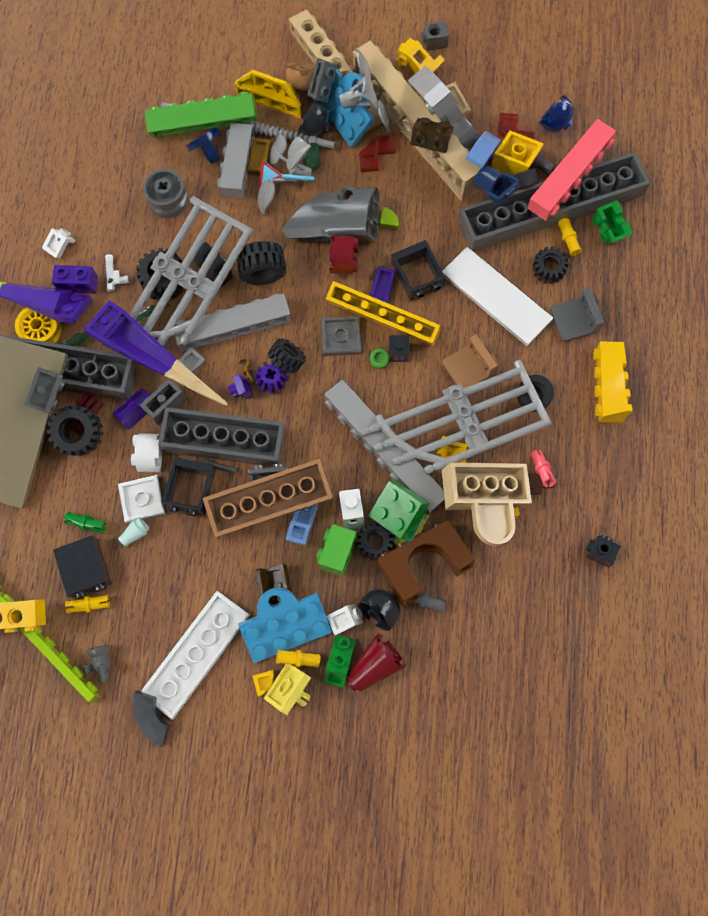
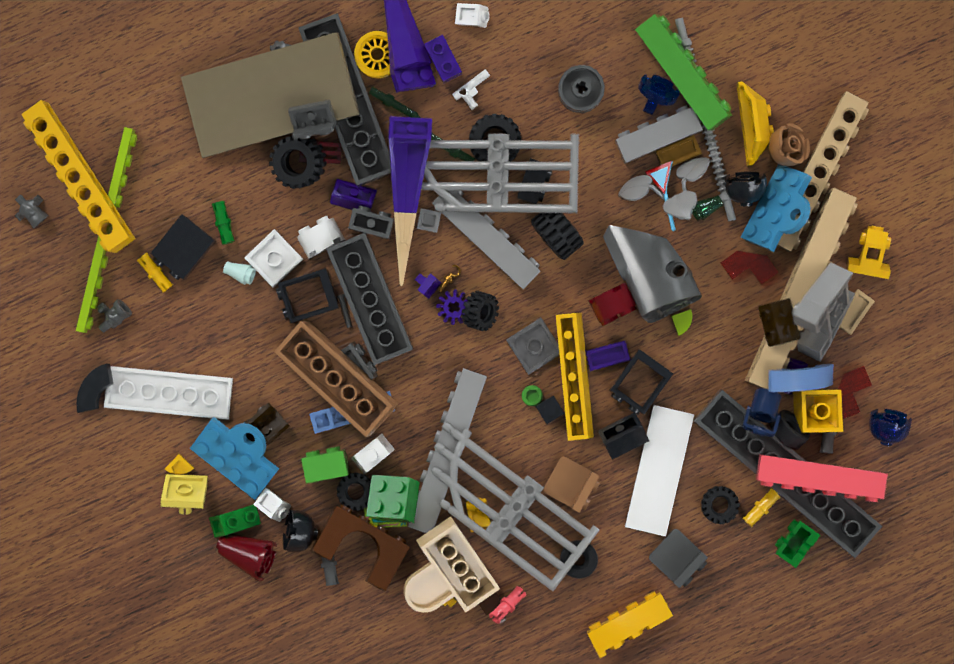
camera: 55 degrees right, 15 degrees up
(298, 658) = (215, 484): yellow pin -> none
(322, 80) = (785, 174): dark grey bracket -> none
(353, 97) = (778, 222): light grey plant -> none
(435, 35) = (926, 251): dark grey brick -> none
(453, 303) = (623, 436): none -> black brick

